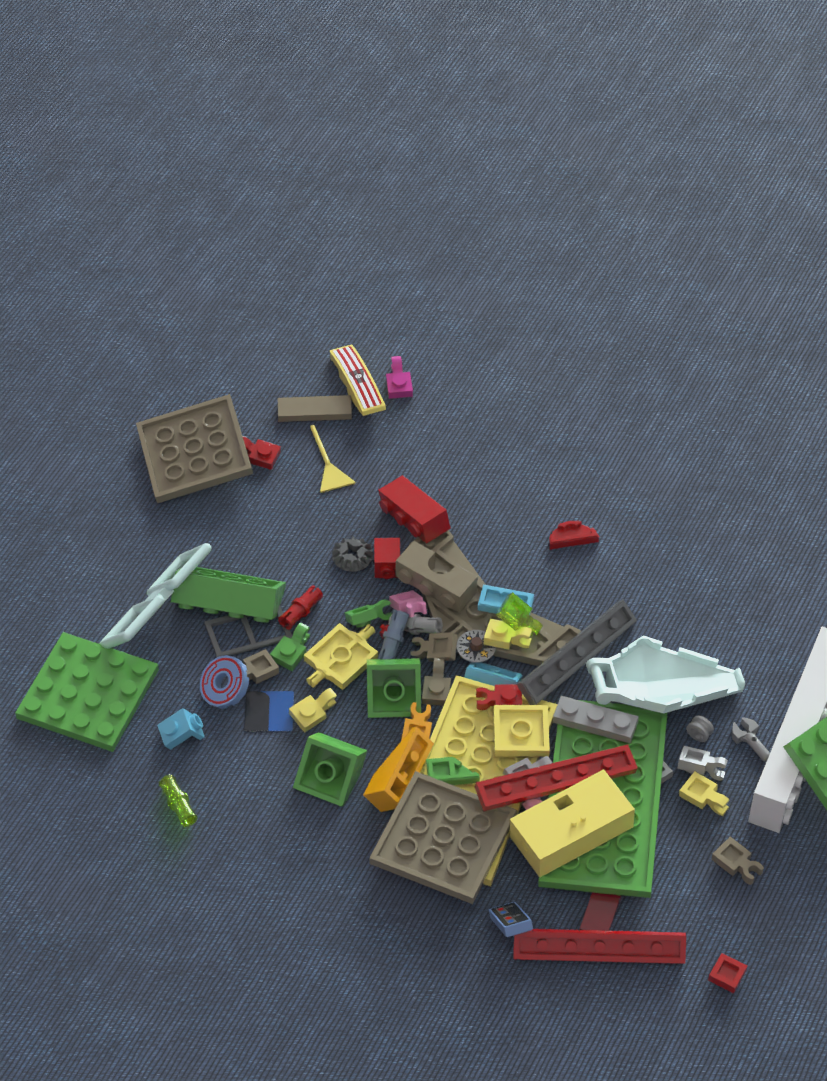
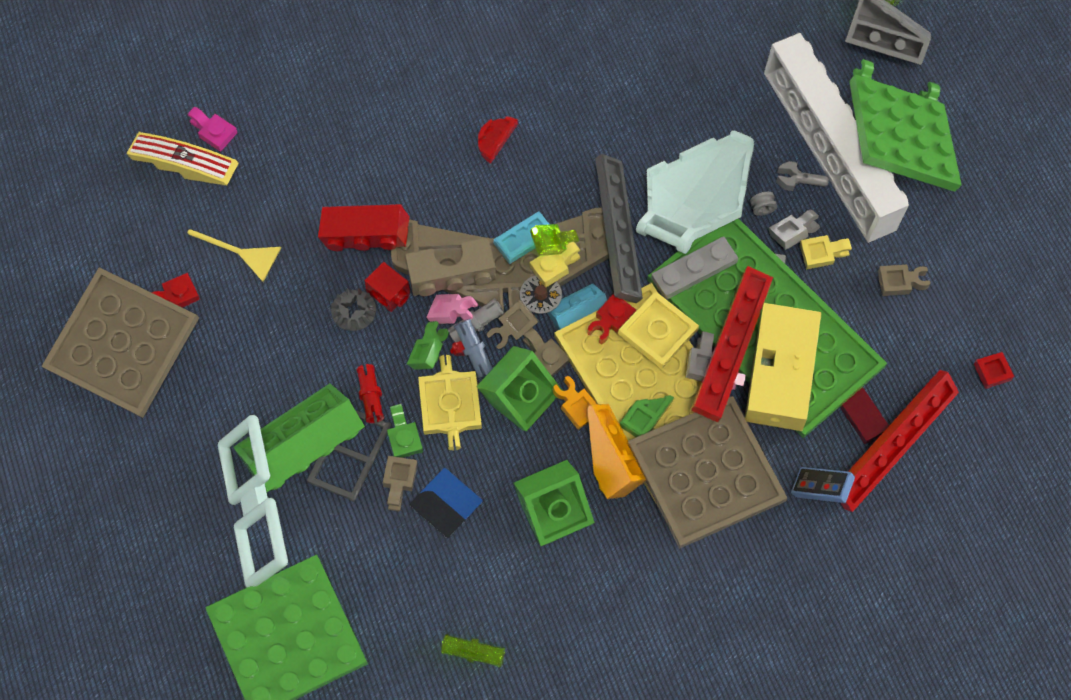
camera: 50 degrees left, 15 degrees up
(180, 727) = (401, 589): medium azure bracket -> none
(213, 675) = (380, 528): medium blue tile -> none
(311, 712) = (480, 471): light yellow plate -> none
(314, 408) = (173, 214): dark tan tile -> none

